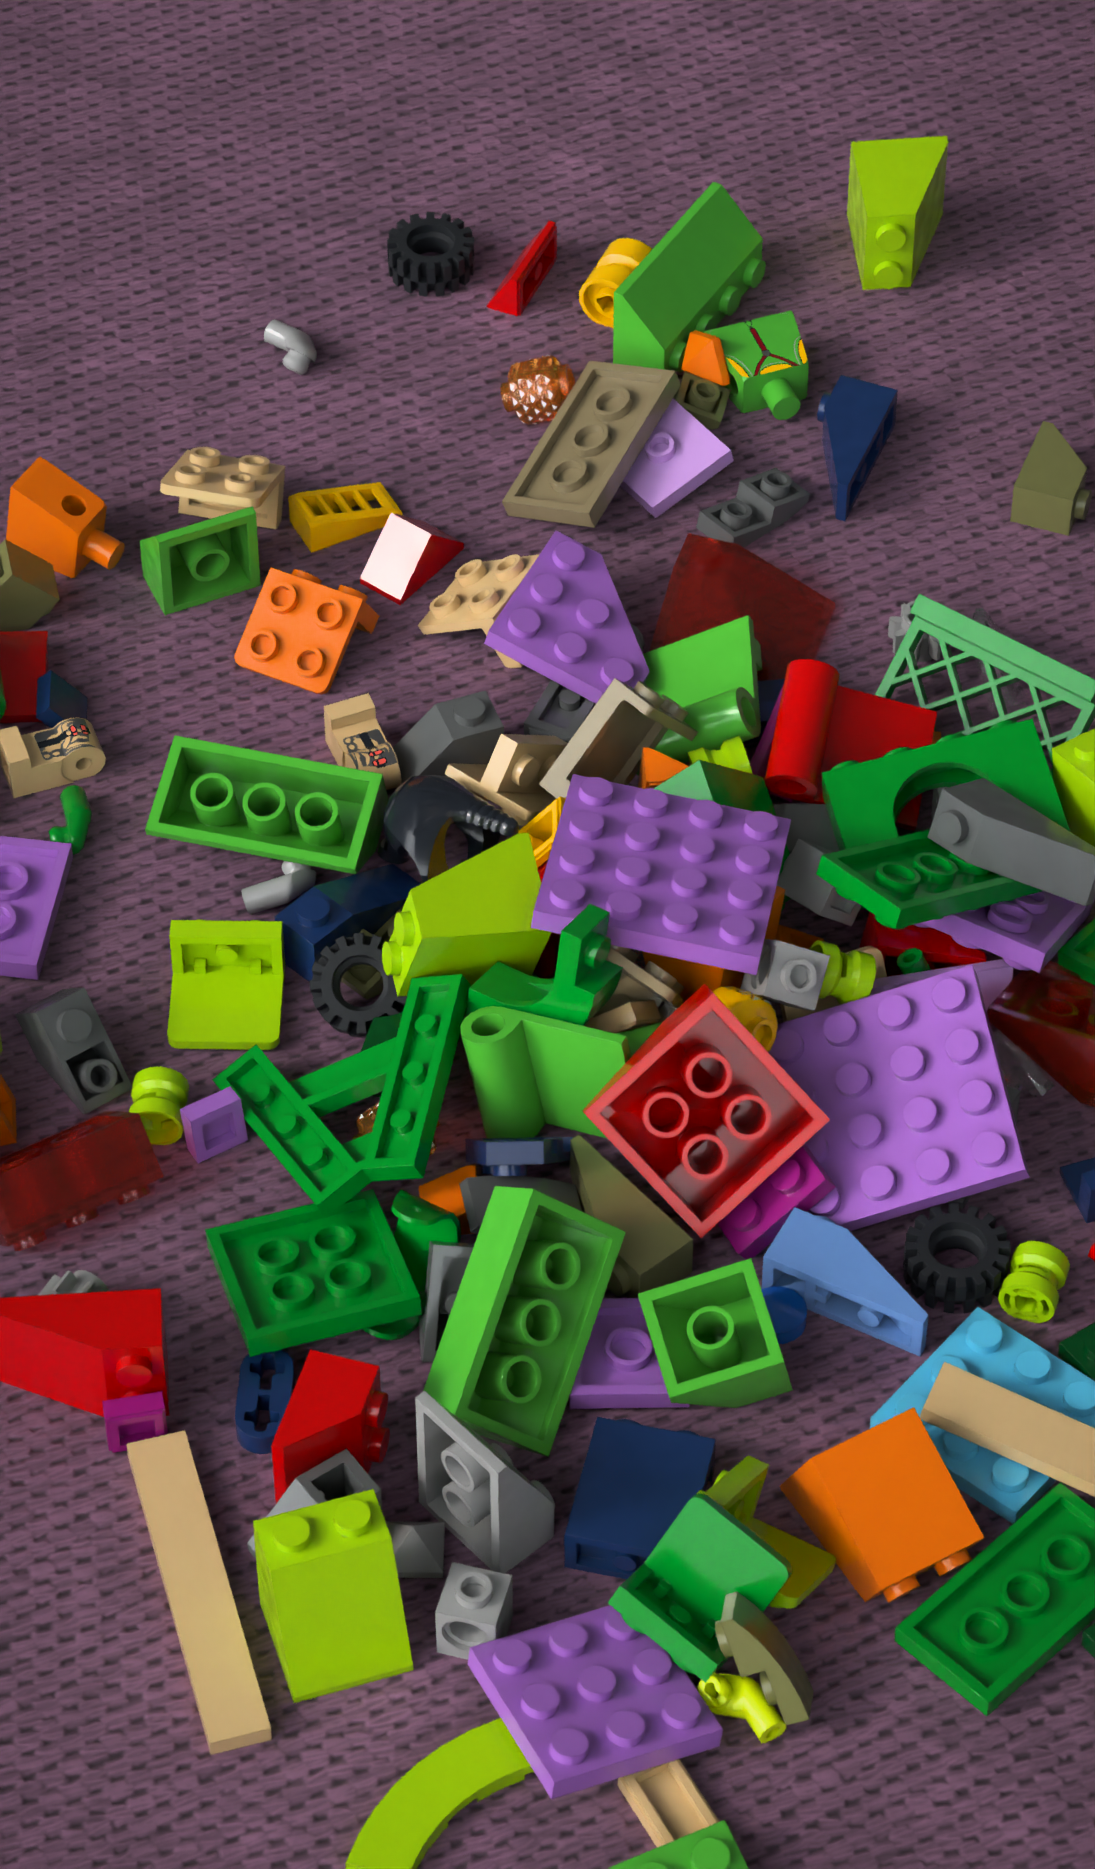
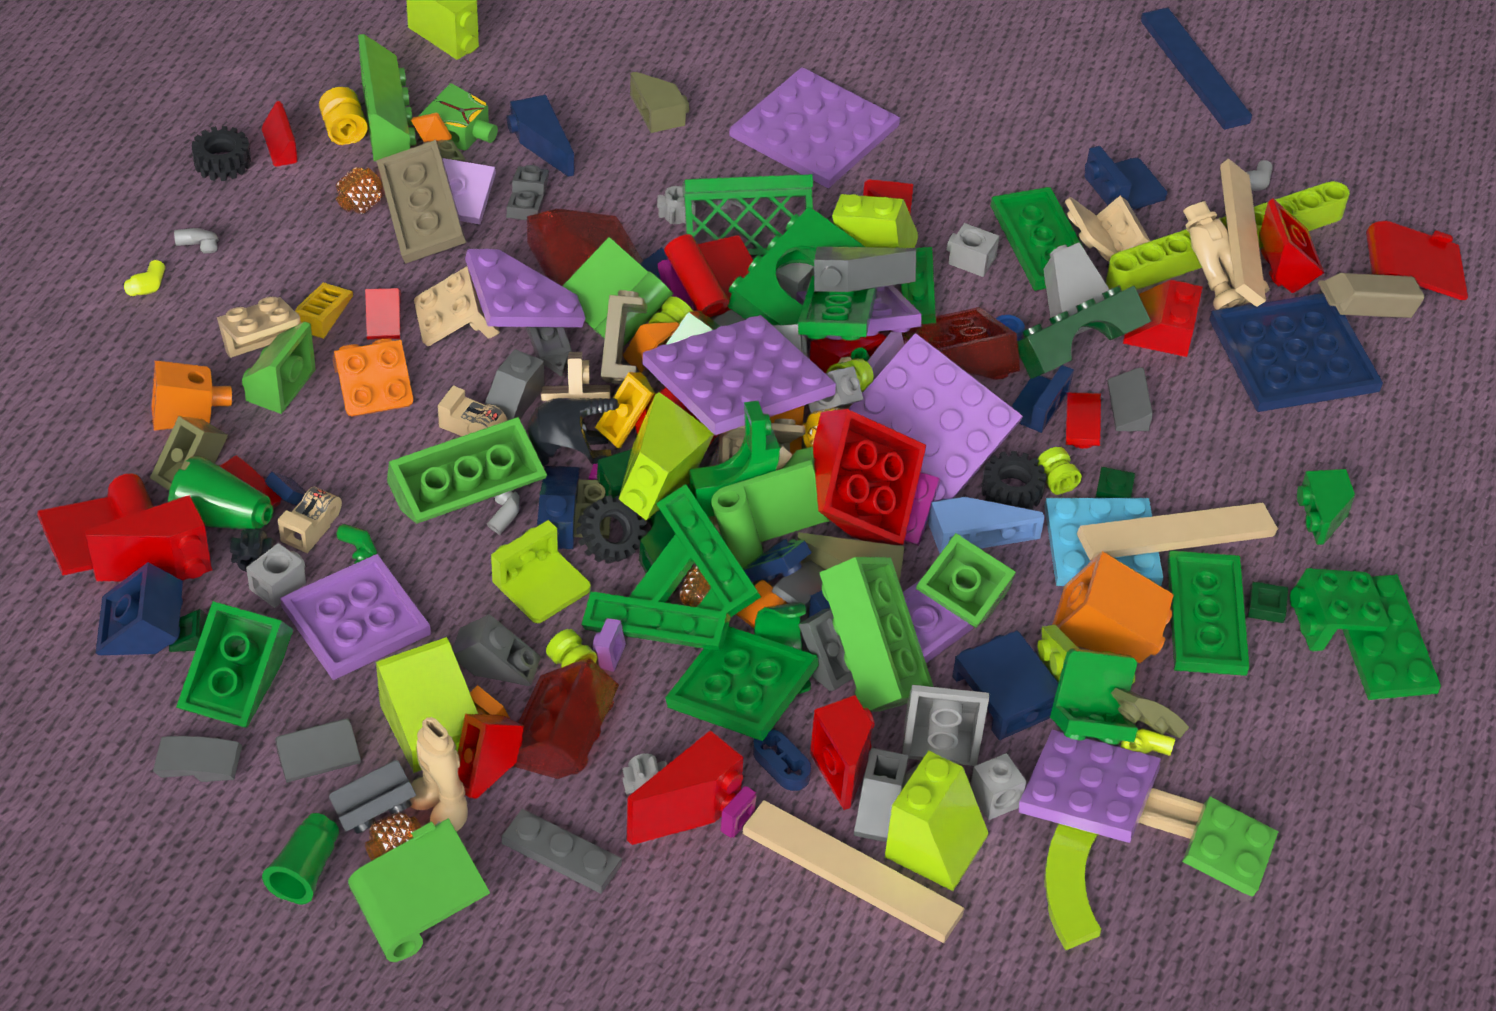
camera: 45 degrees left, 0 degrees up
(182, 367) = (146, 282): none -> neon yellow arm

